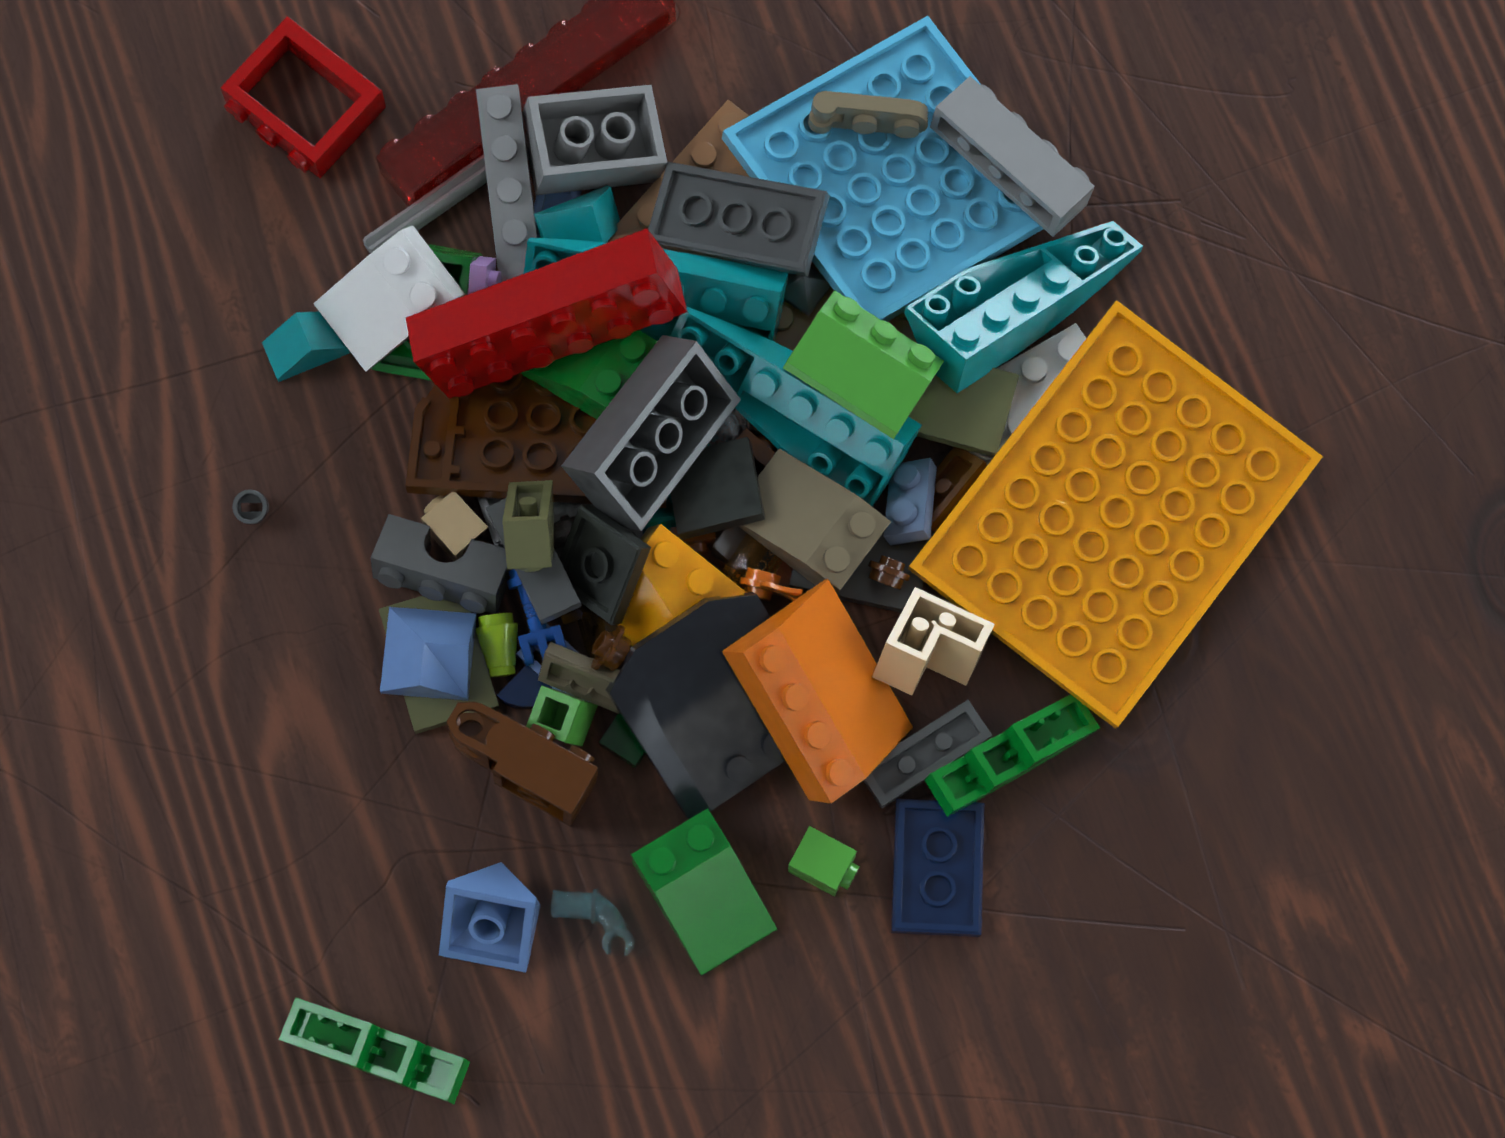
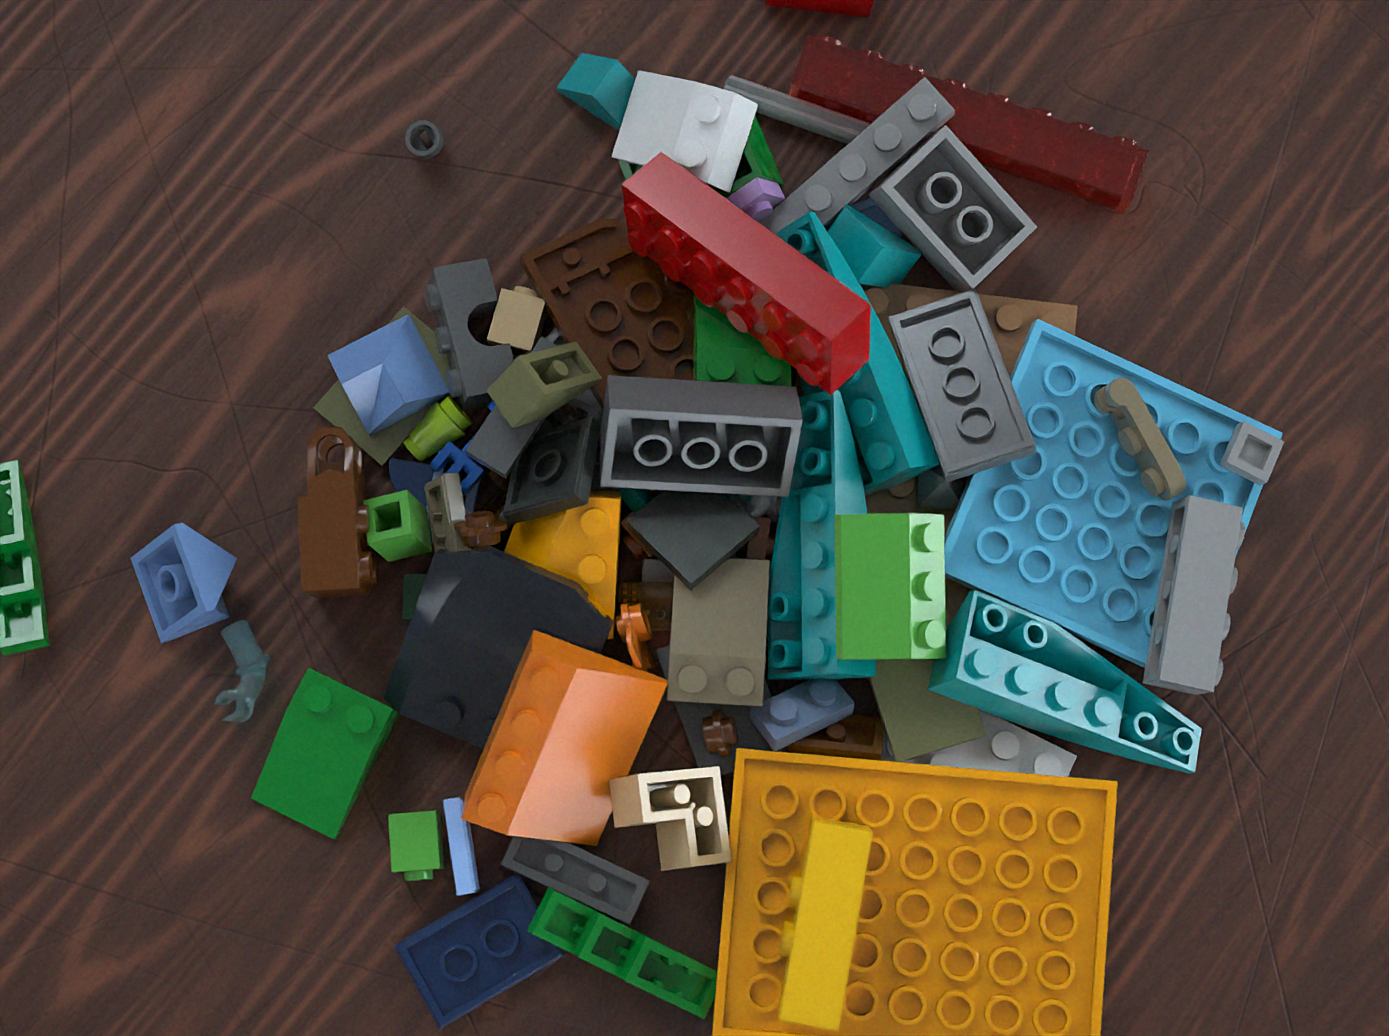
camera: 55 degrees right, 5 degrees up
(848, 828) = (461, 848): none -> light blue tile
(930, 45) = (1251, 453): none -> light grey plate
(1086, 575) = (824, 923): none -> yellow brick

